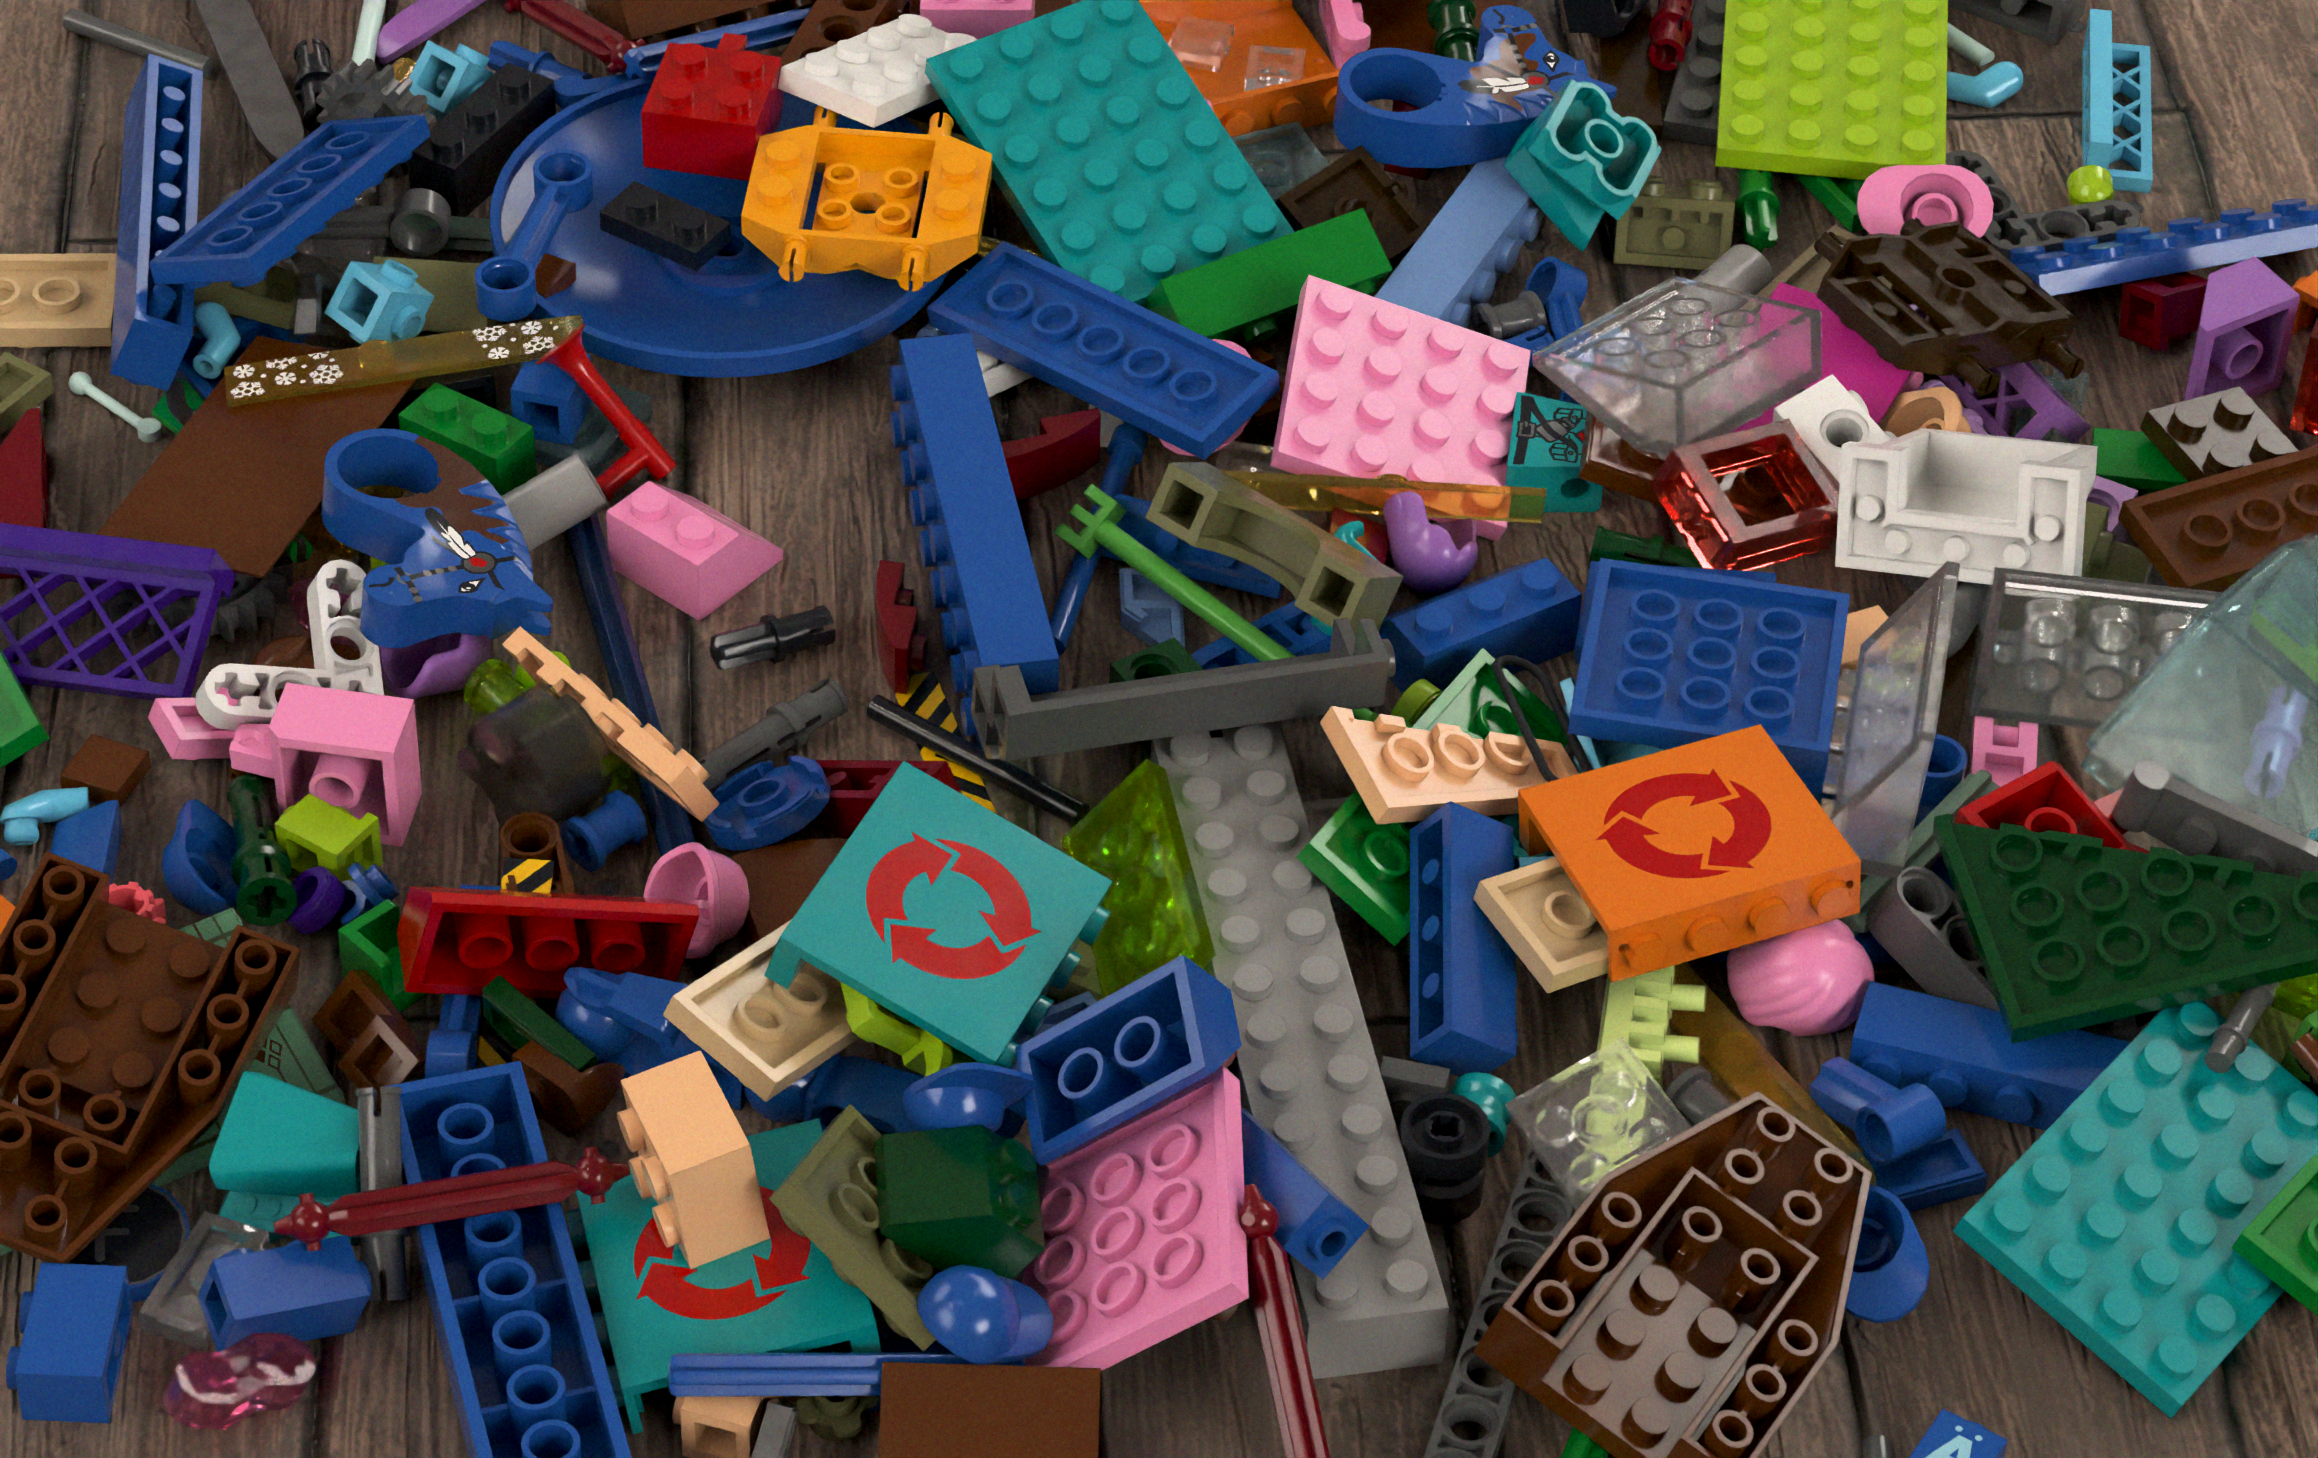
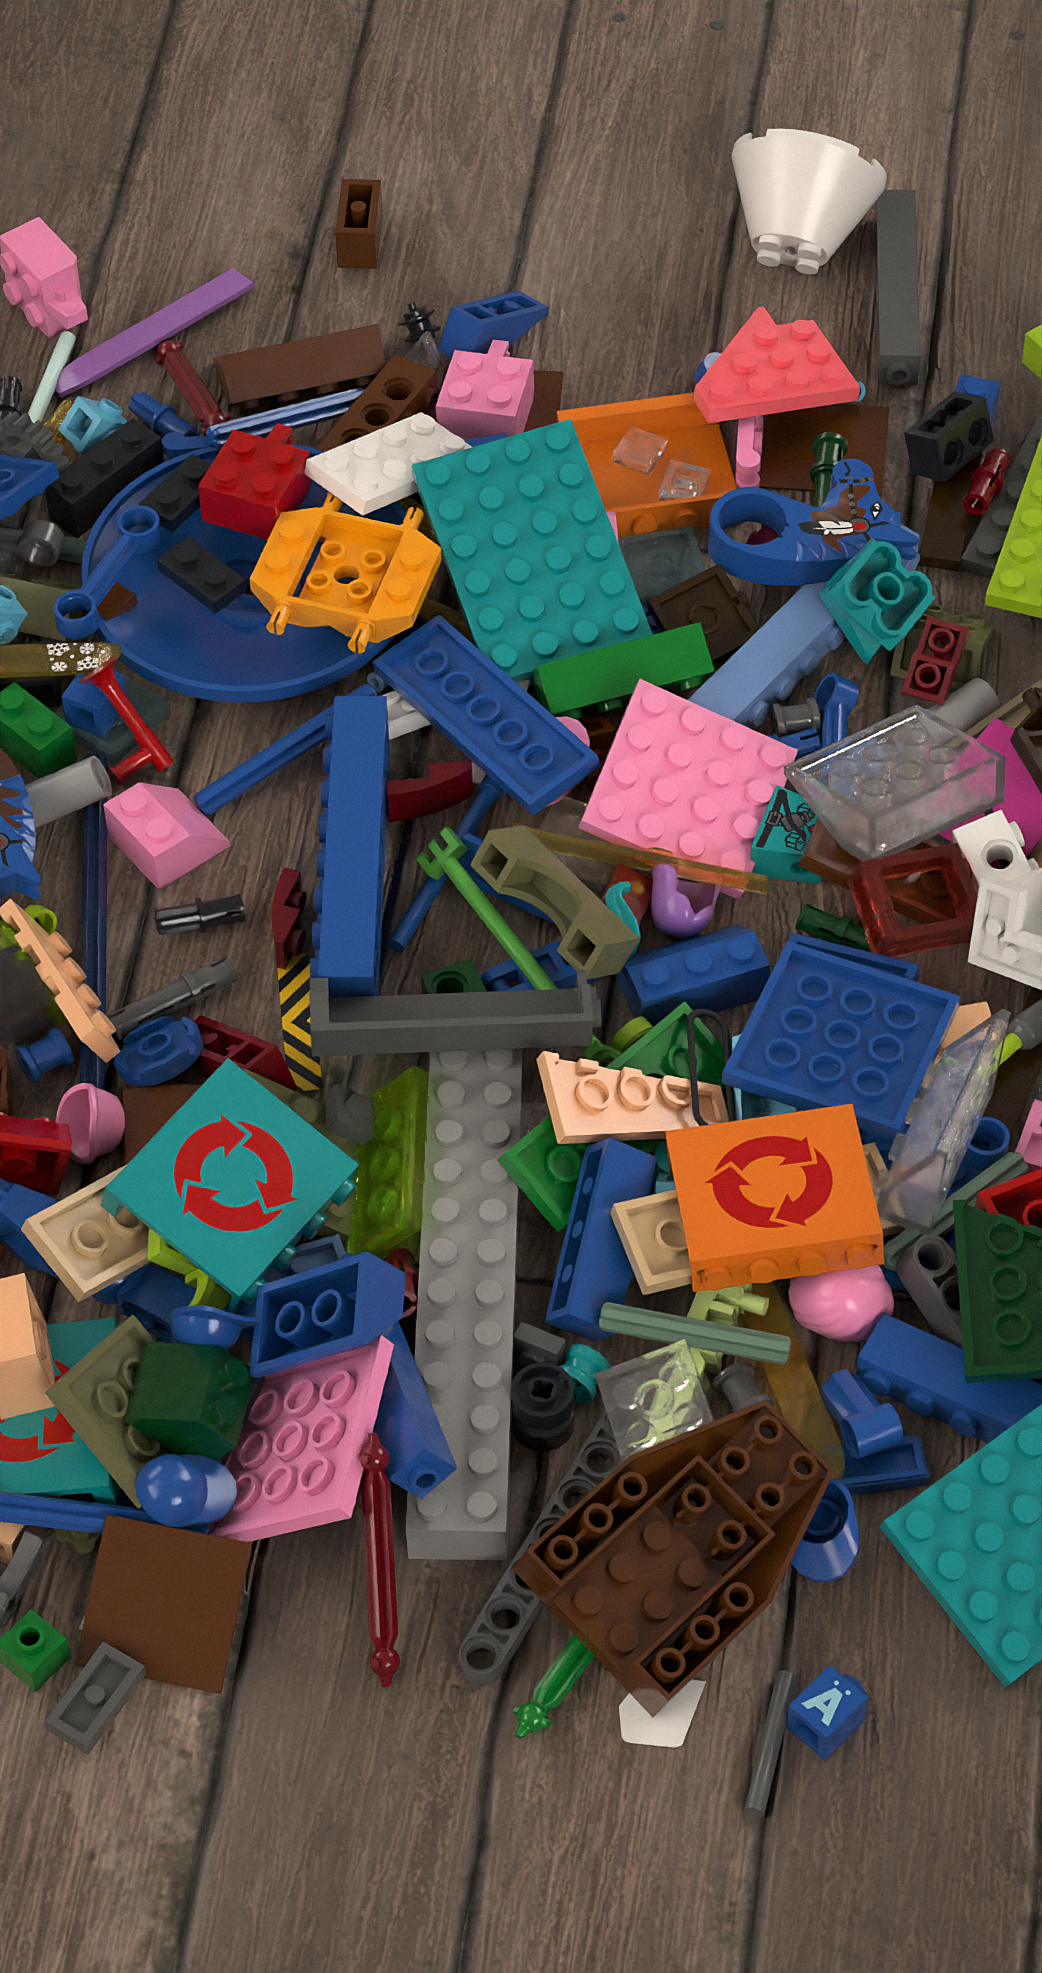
camera: 15 degrees right, 10 degrees up
(608, 133) = (178, 494): none -> black plate
(810, 448) = (268, 761): none -> blue axle
(974, 759) = (301, 1020): black bar -> none
(1067, 832) = (350, 1114): none -> dark grey plate
(1149, 610) = (471, 931): medium blue tile -> none
(1643, 1033) = (698, 1333): none -> sand green axle
(1681, 225) = (935, 661): none -> dark red slope
(1757, 208) = (1008, 644): green axle -> none

